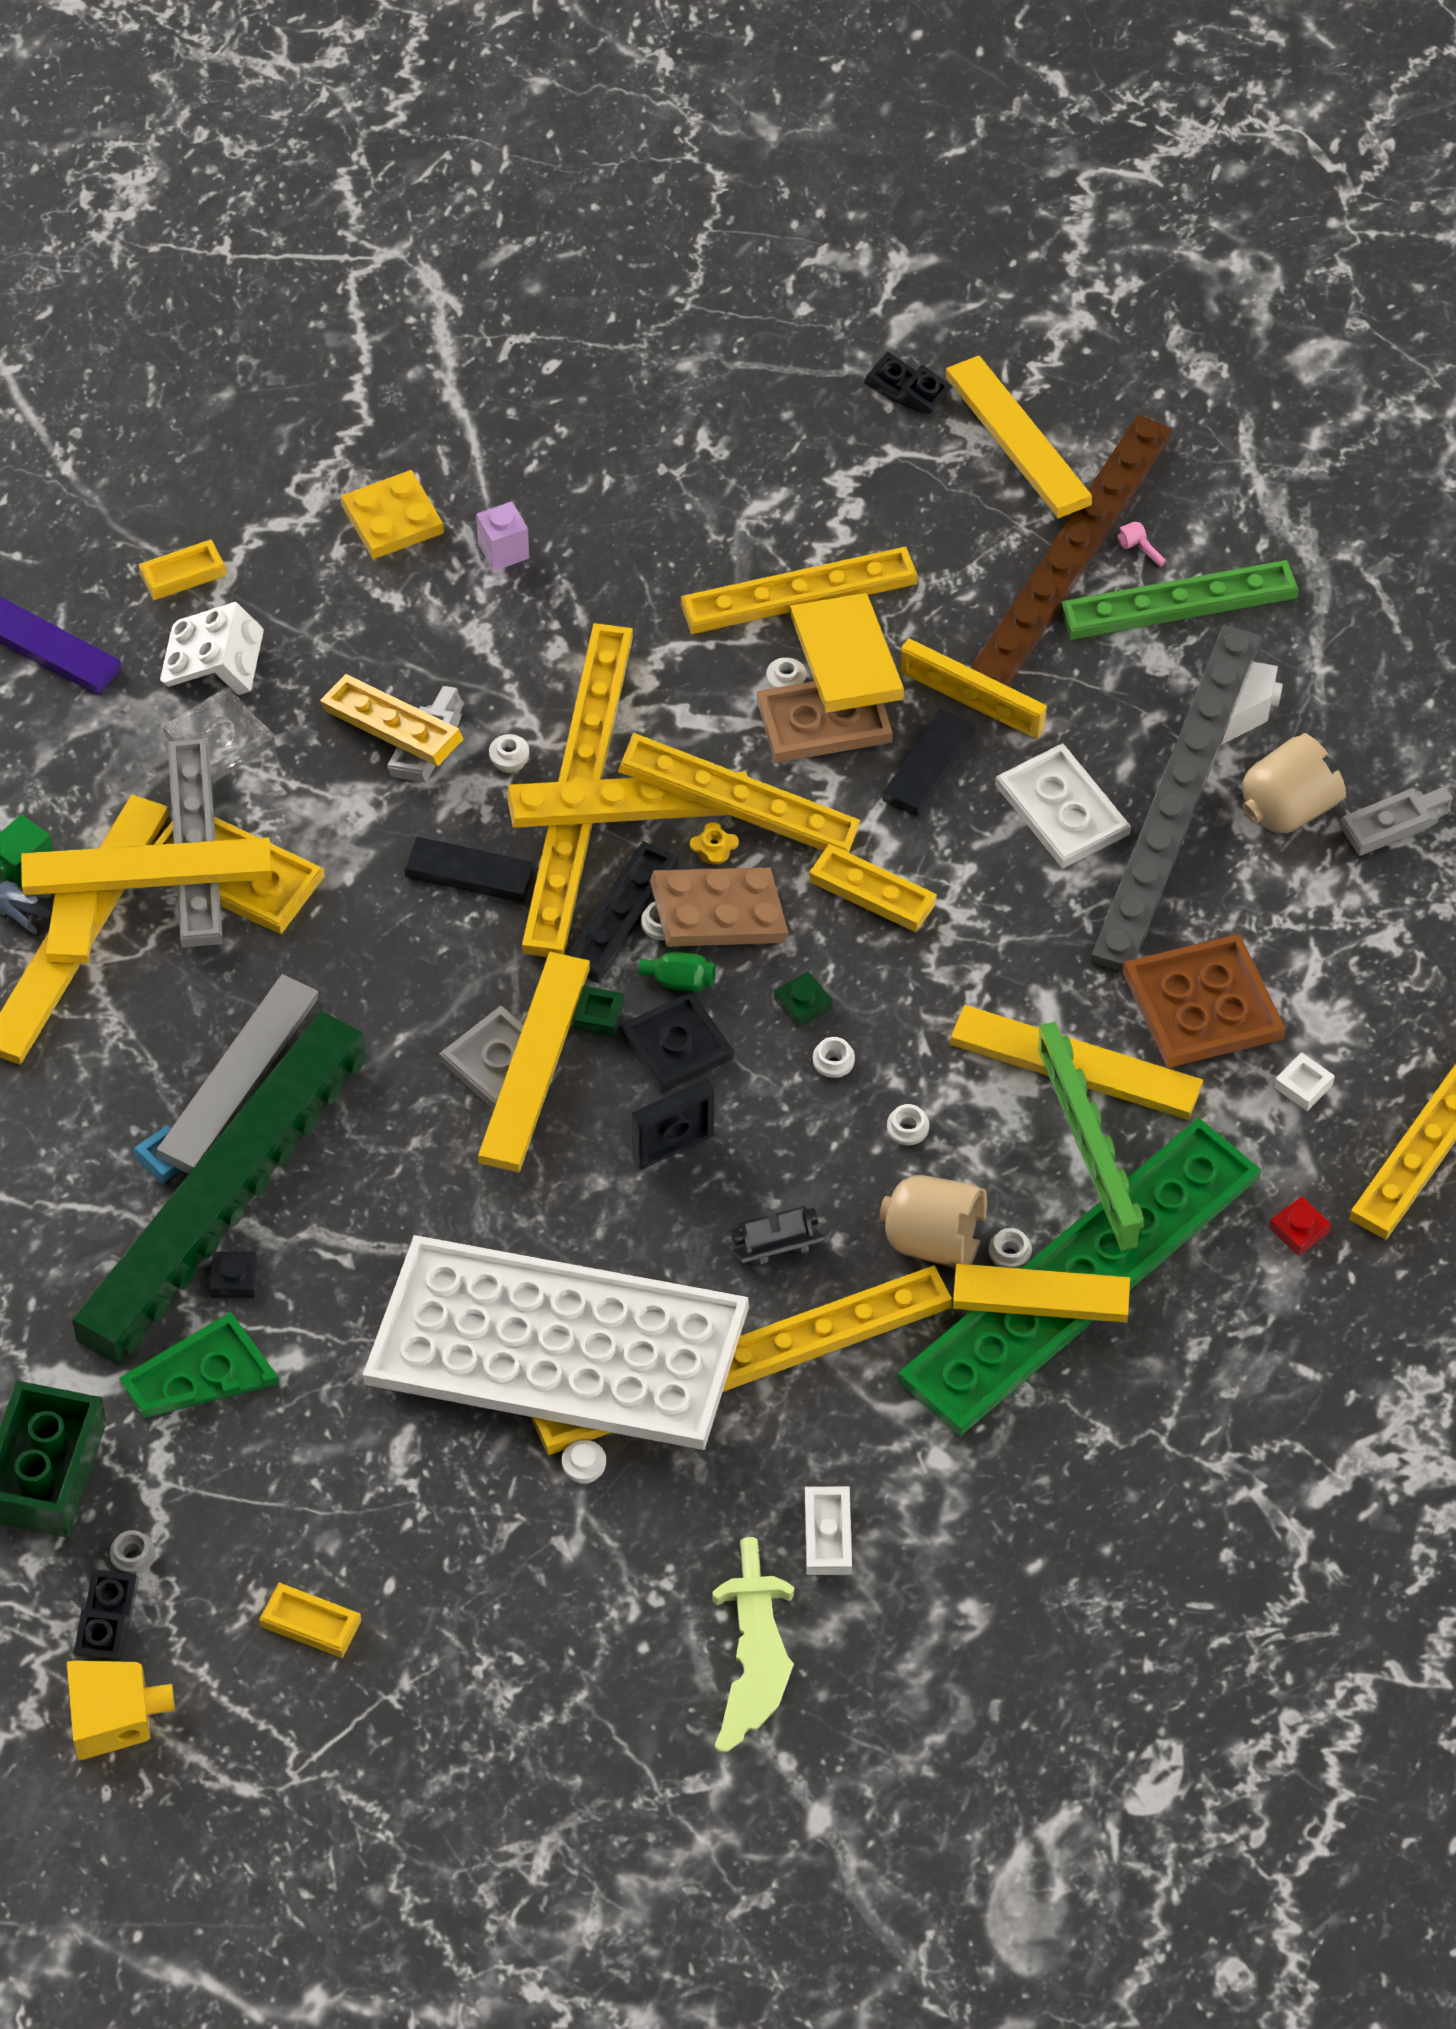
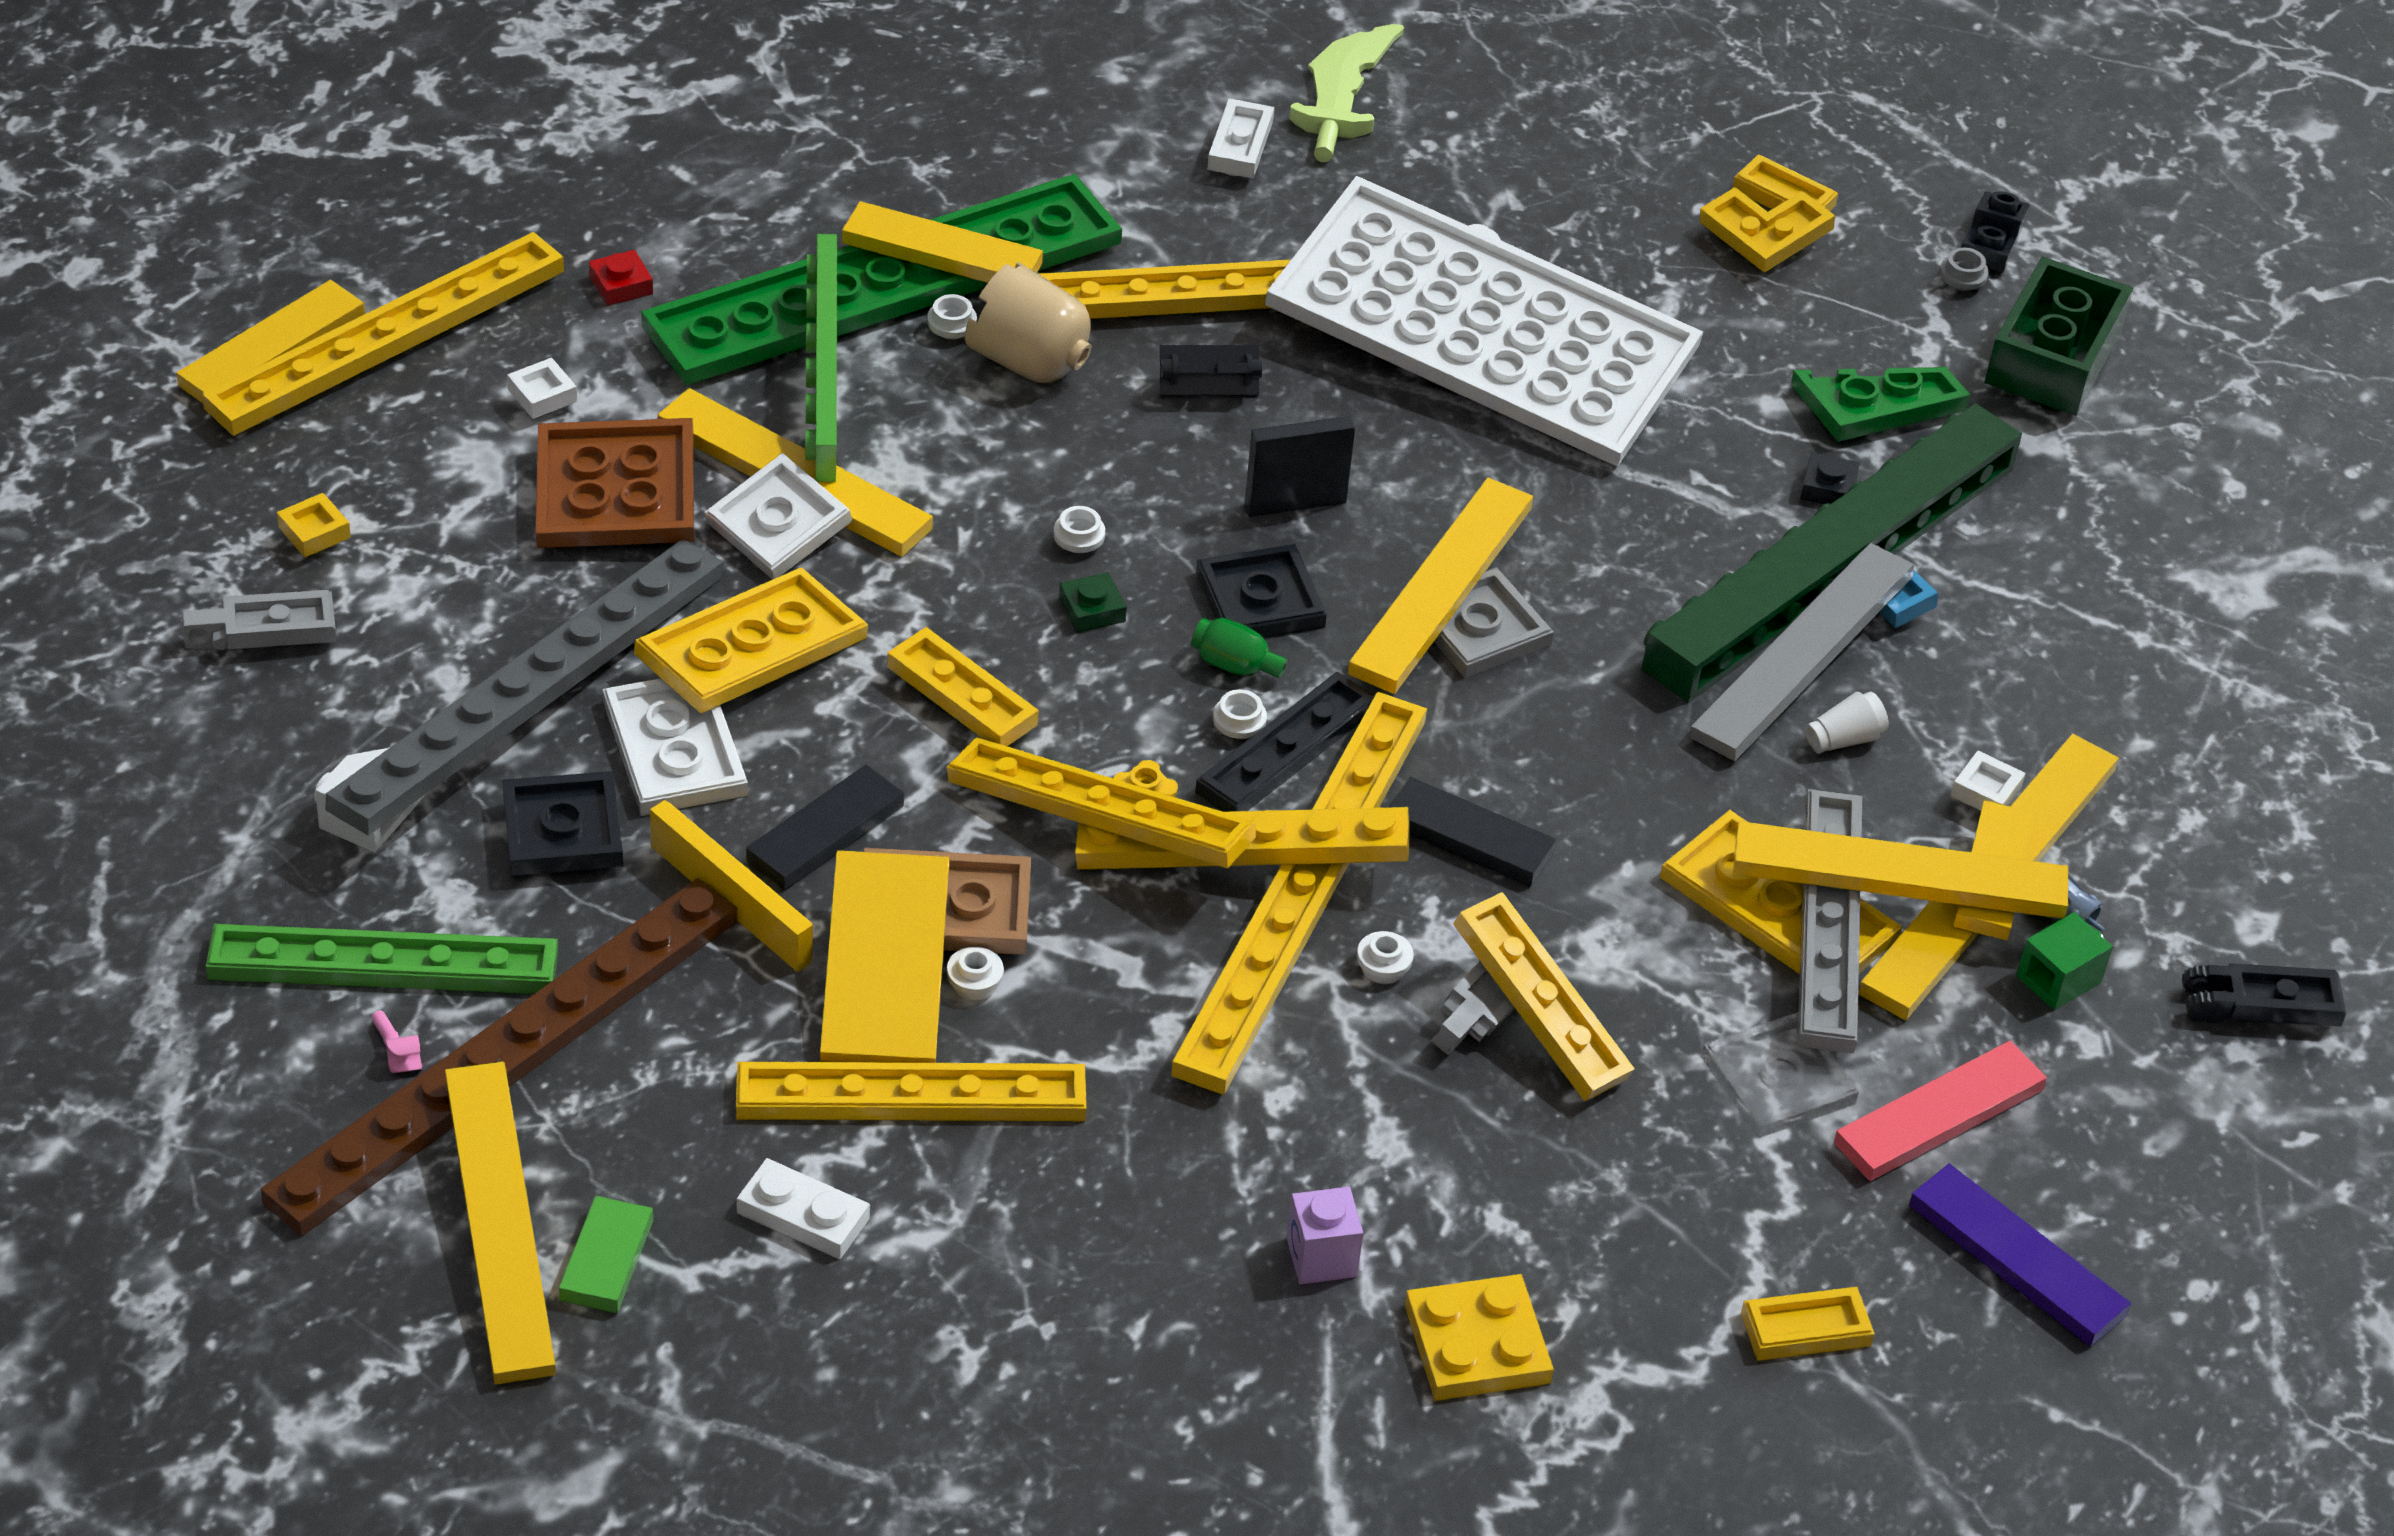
camera: 170 degrees left, 10 degrees down
(83, 993) = (1987, 780): none -> white plate
(103, 732) = (1939, 1110): none -> coral tile
(112, 1705) = (1993, 153): yellow torso -> none
(195, 1022) = (1849, 723): none -> white cone
(214, 642) = (1781, 1166): white bracket -> none
(317, 1537) = (1763, 235): none -> yellow plate
(598, 1011) = (1345, 628): dark green plate -> none
(718, 906) = (1166, 699): medium nougat plate -> none
(838, 499) = (803, 1208): none -> white plate
(901, 383) = (621, 1363): black slope -> none
(908, 1115) = (1018, 448): white plate -> none
(946, 444) = (606, 1254): none -> bright green tile
(1041, 890) = (750, 639): none -> yellow tile
(1072, 1000) = (778, 516): none -> white tile
(1108, 712) = (562, 823): none -> black plate
(1291, 786) = (384, 652): tan cylinder -> none
(1407, 909) = (313, 525): none -> yellow plate

